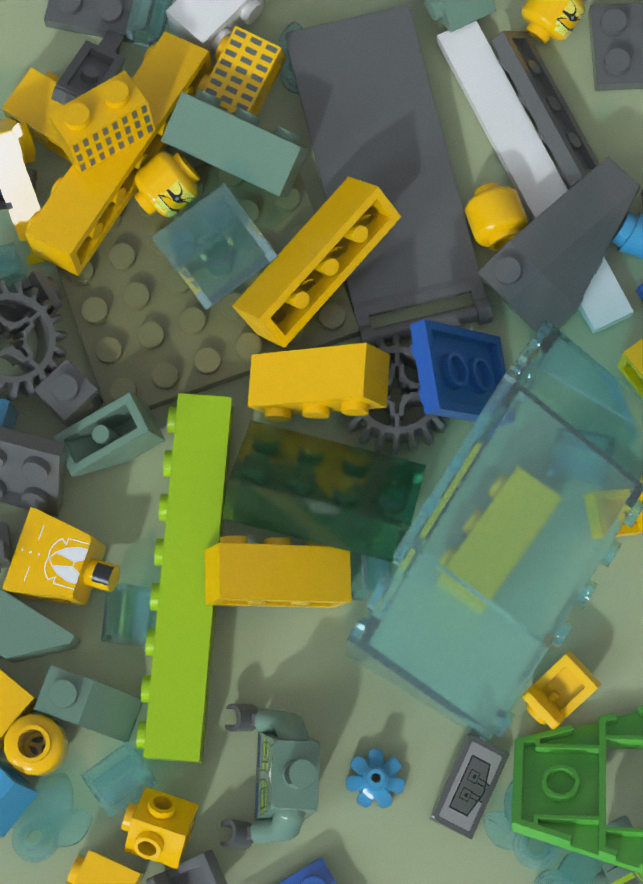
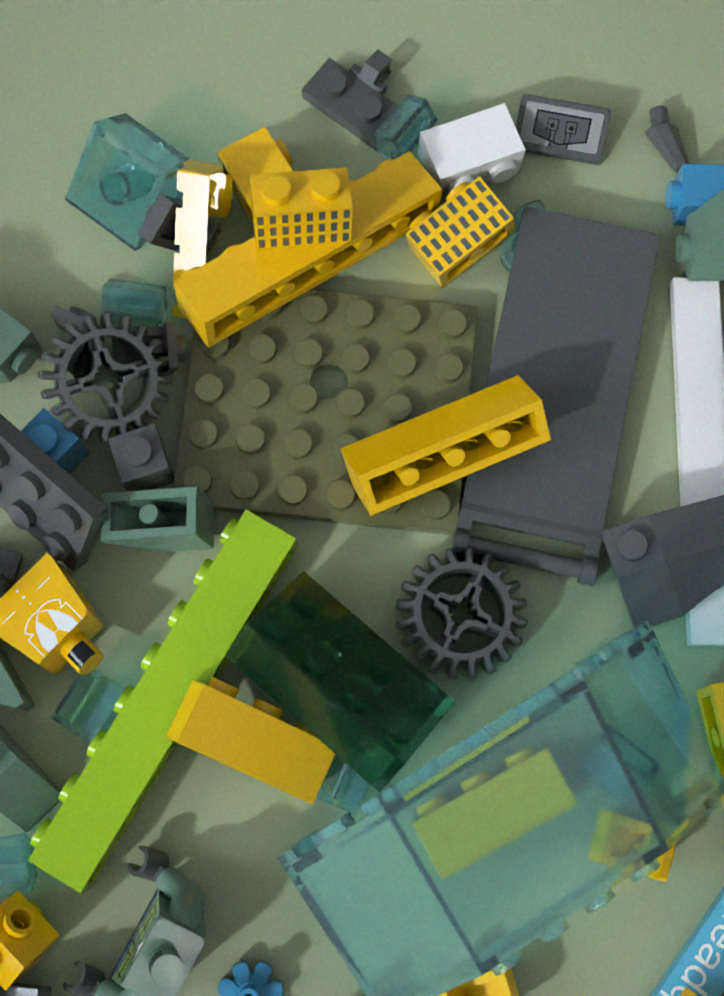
camera: 20 degrees right, 0 degrees up
(90, 68) = (319, 151): dark grey hinge -> none
(166, 184) = (336, 299): yellow head -> none
(213, 246) = (350, 381): clear light blue slope -> none
(235, 142) = (423, 289): sand green brick -> none
(319, 382) = (389, 566): yellow brick -> none
(455, 368) = (533, 624): blue plate -> none
(495, 215) = (646, 482): yellow head -> none

